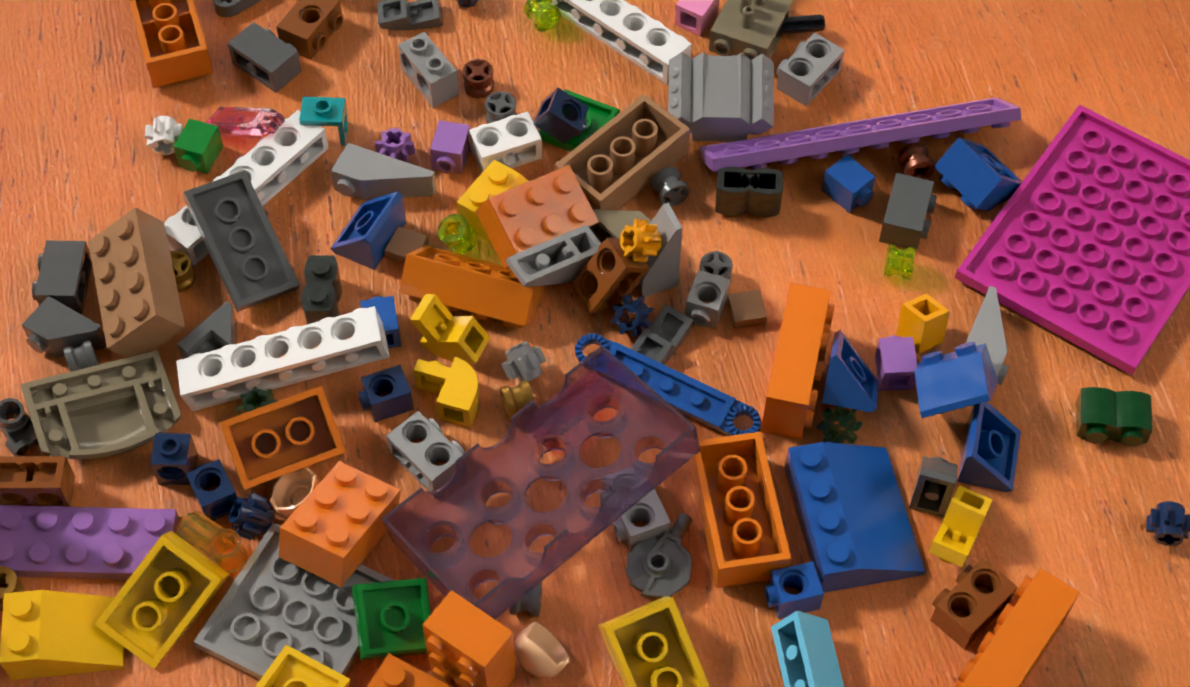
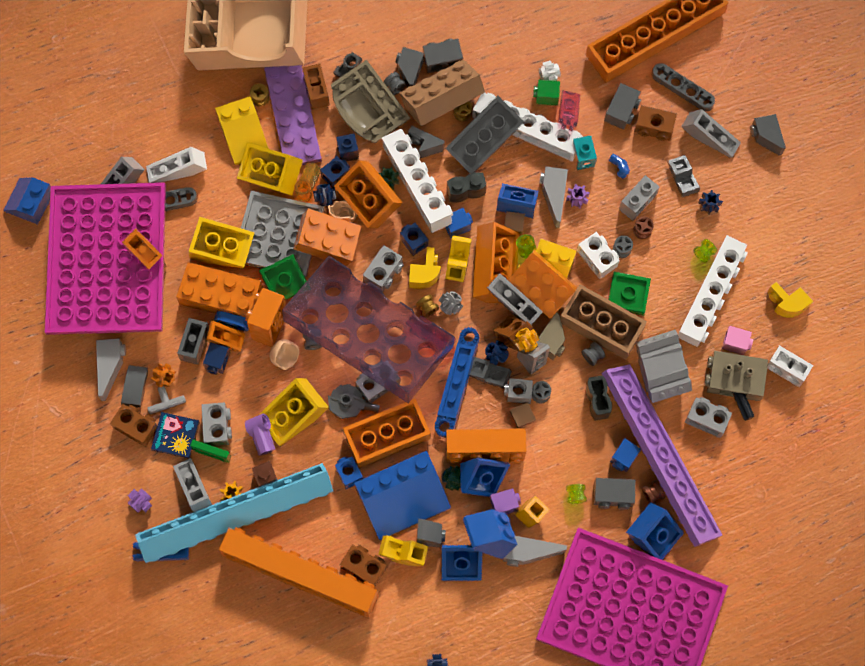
camera: 75 degrees right, 15 degrees up
(361, 82) = (622, 165): none -> blue arm
(450, 147) = (585, 225): medium lavender brick -> none
(561, 116) = (619, 272): dark blue brick -> none
(1114, 416) = (501, 629): dark green brick -> none

